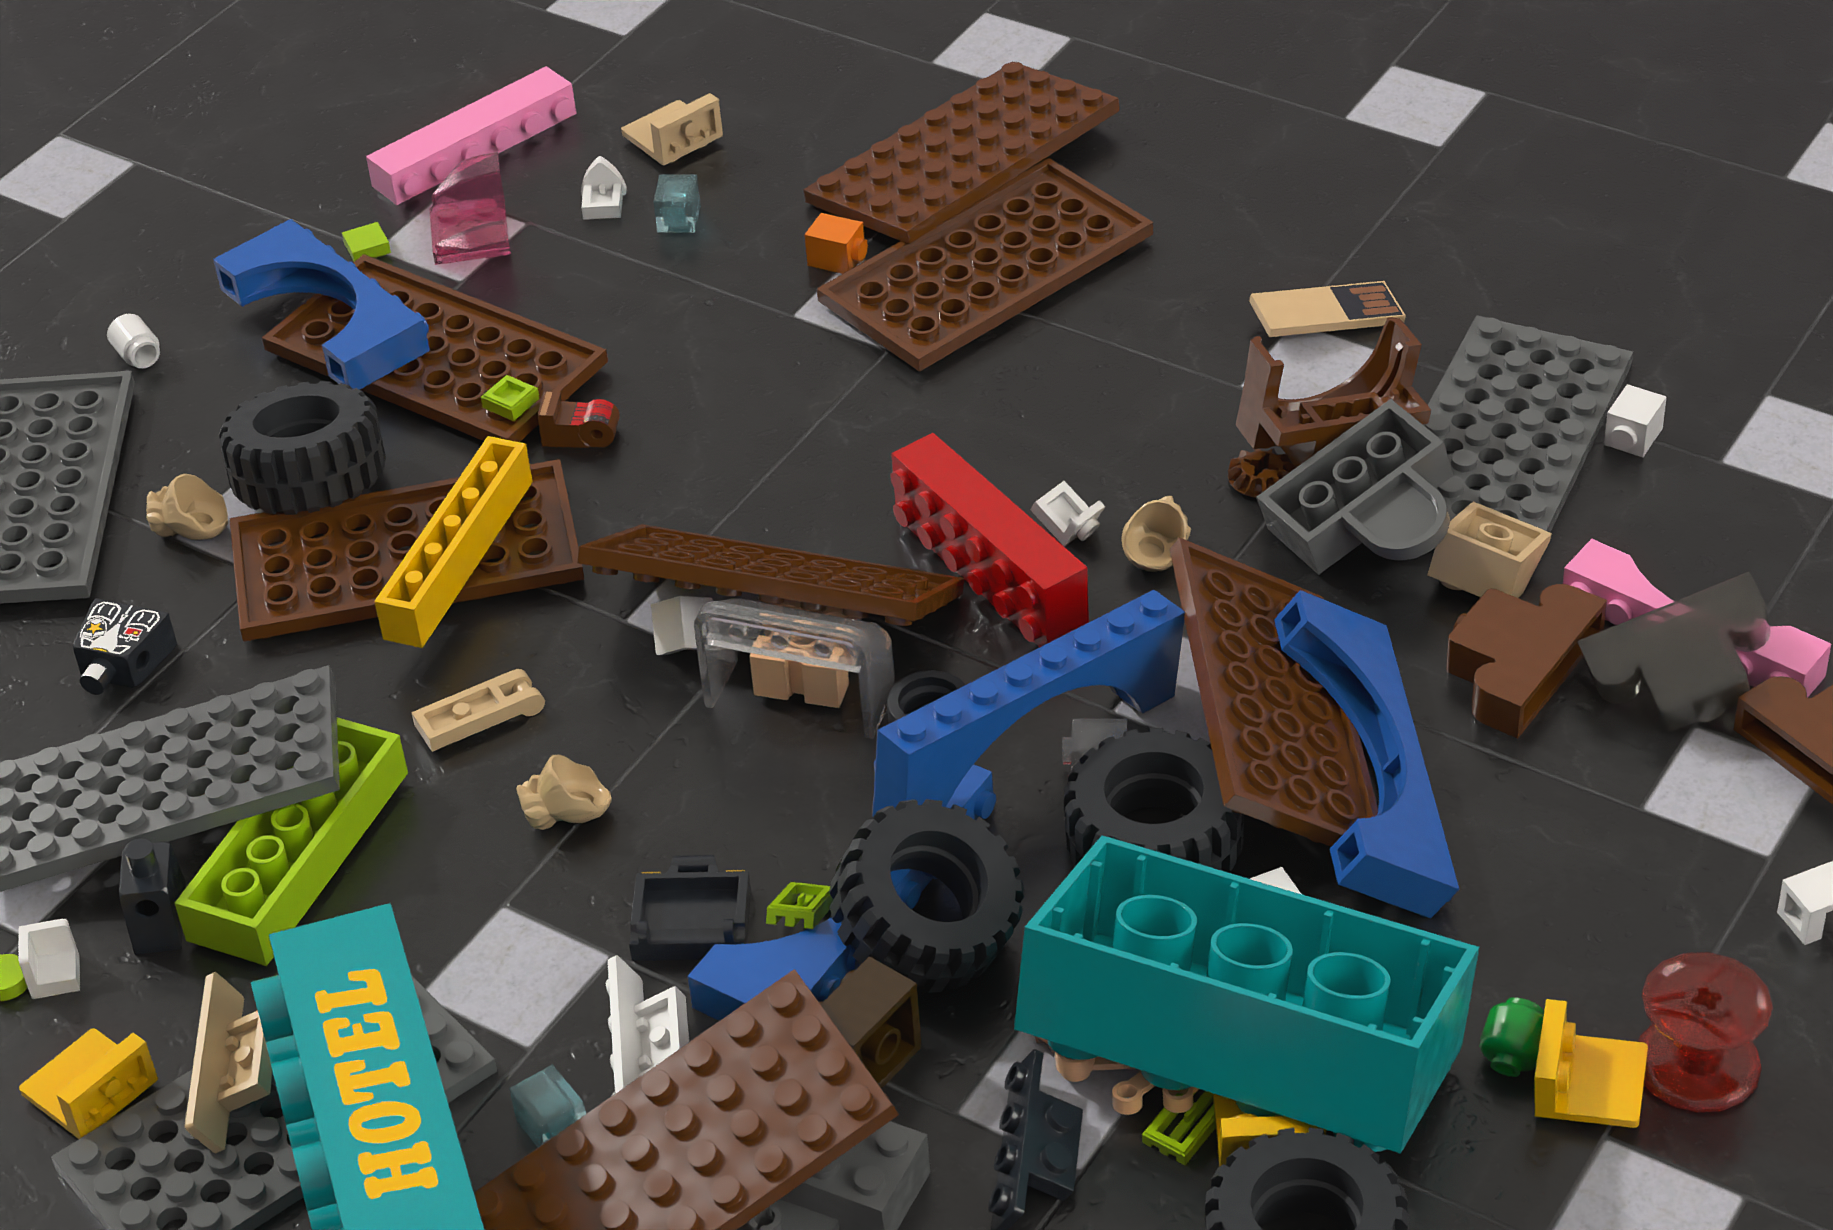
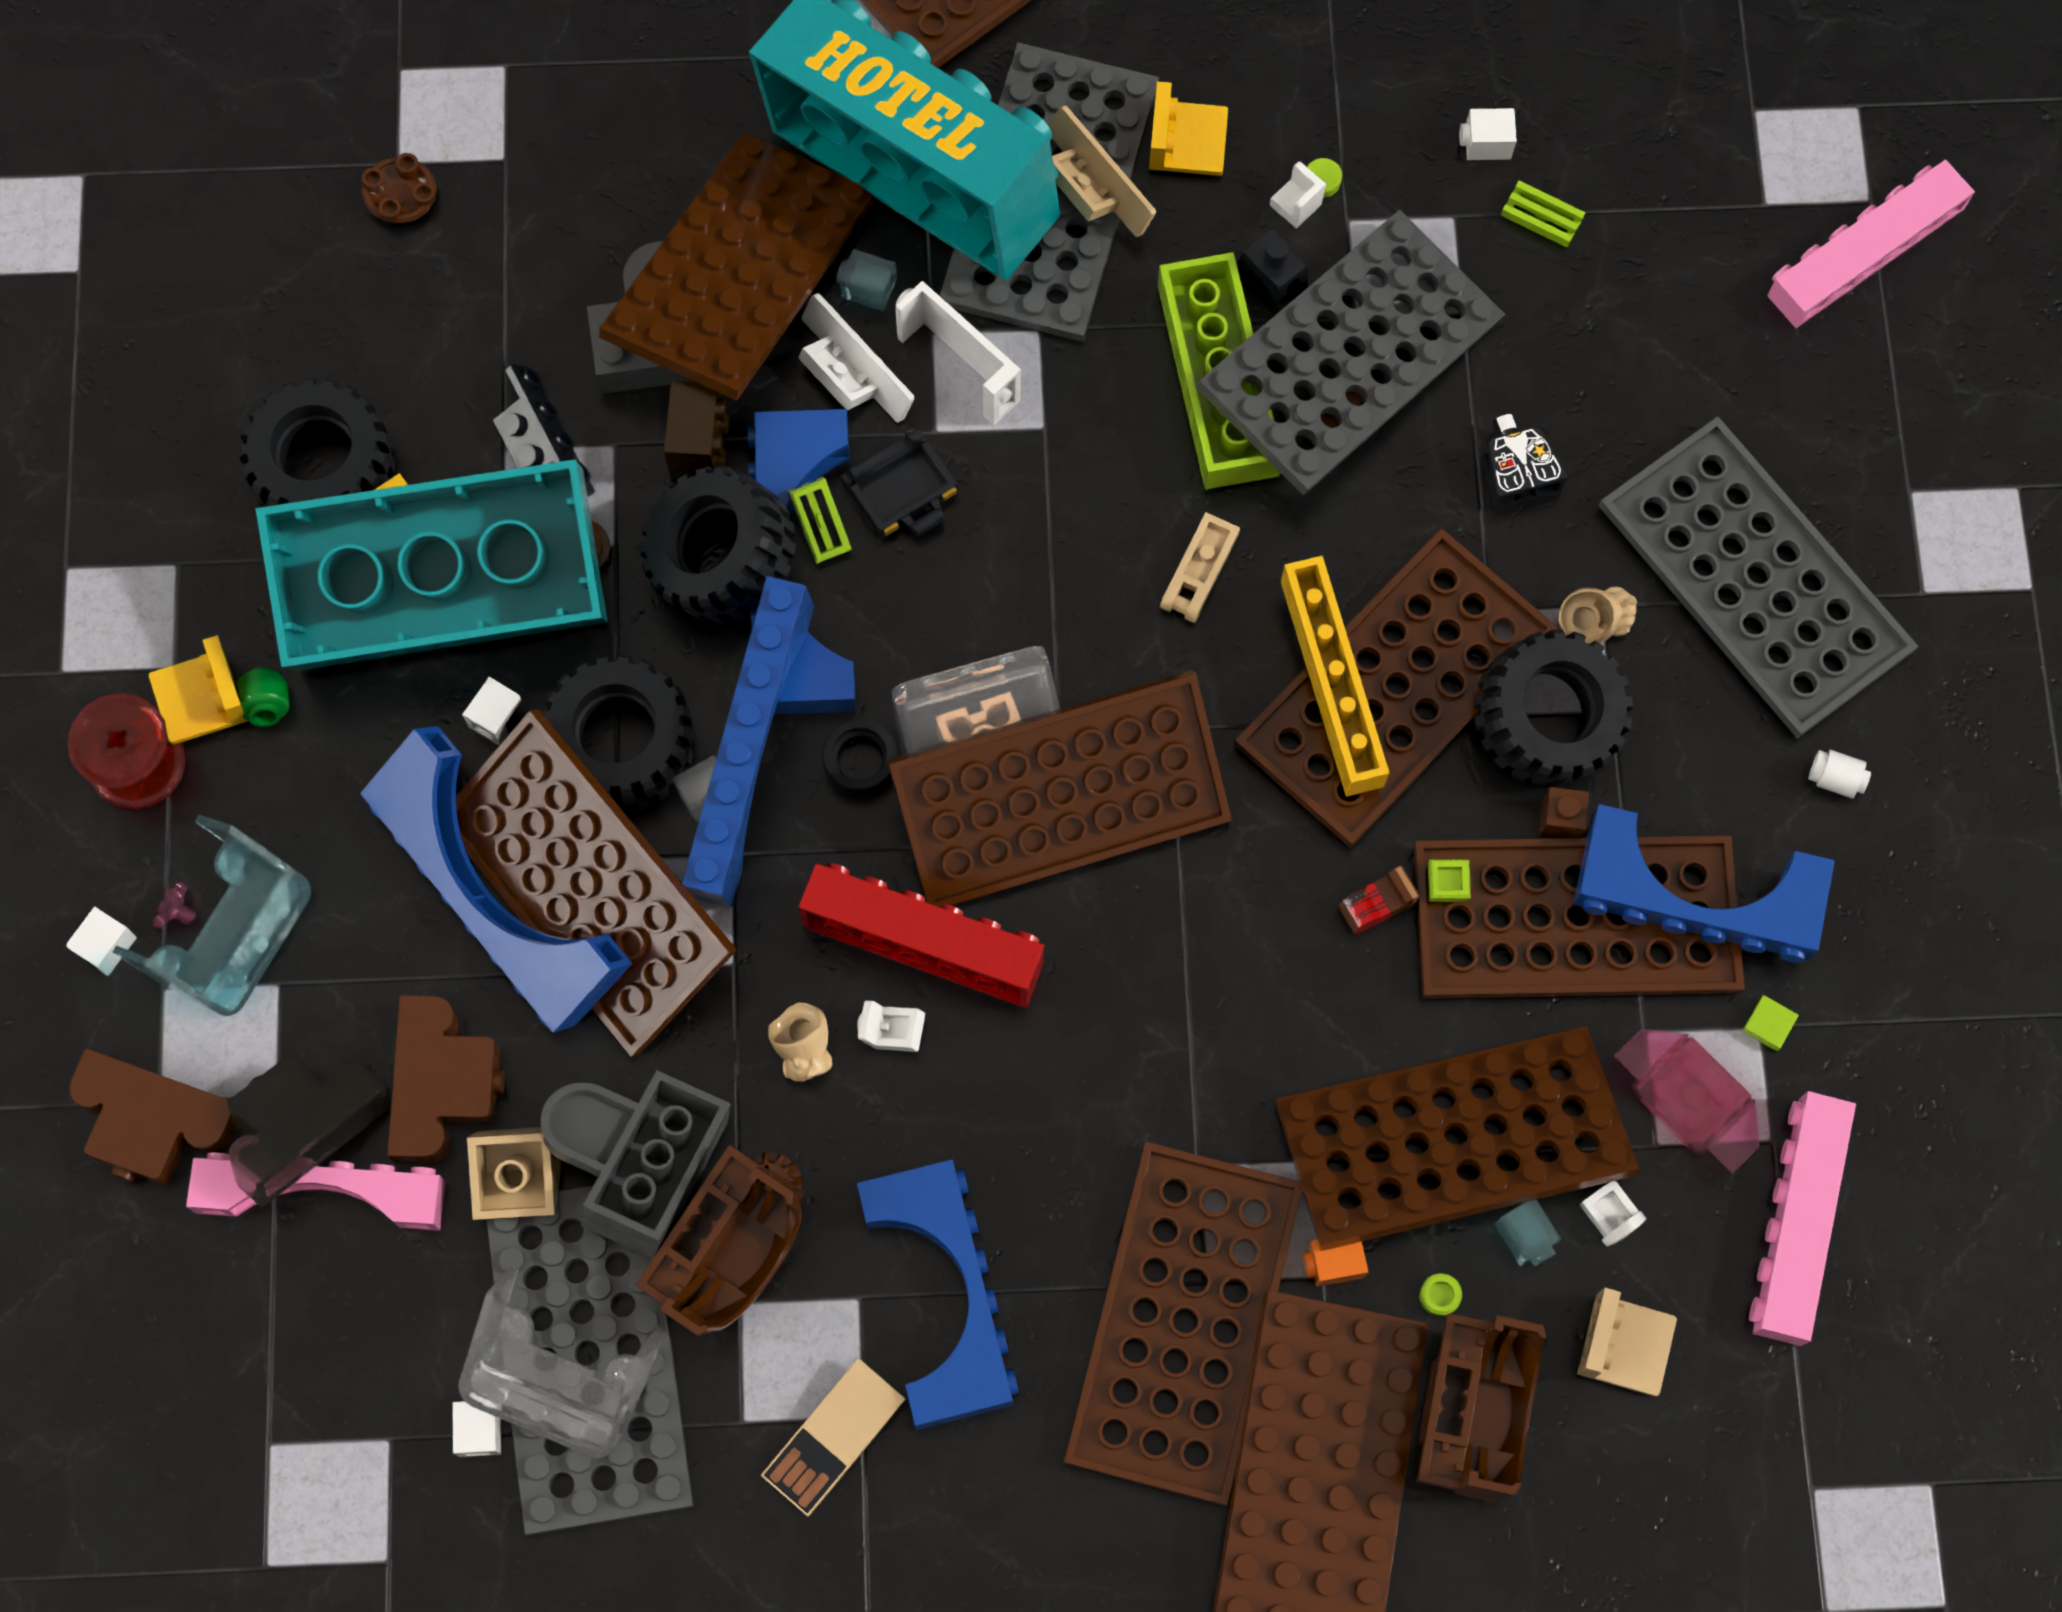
camera: 140 degrees right, 30 degrees up
(383, 394) = (1563, 813): none -> reddish brown brick
(524, 928) = (1003, 377): none -> white panel
(563, 793) = (1063, 521): tan hair -> none
(669, 309) = (1455, 1197): none -> reddish brown piece
(776, 208) = (1440, 1295): none -> lime tile
(831, 120) = (1480, 1406): none -> reddish brown piece
(1179, 294) = (974, 1374): none -> blue arch
(1533, 380) = (543, 1389): none -> clear windscreen
(1686, 845) = (241, 932): none -> clear light blue windscreen
(1725, 900) = (173, 907): none -> clear pink plant

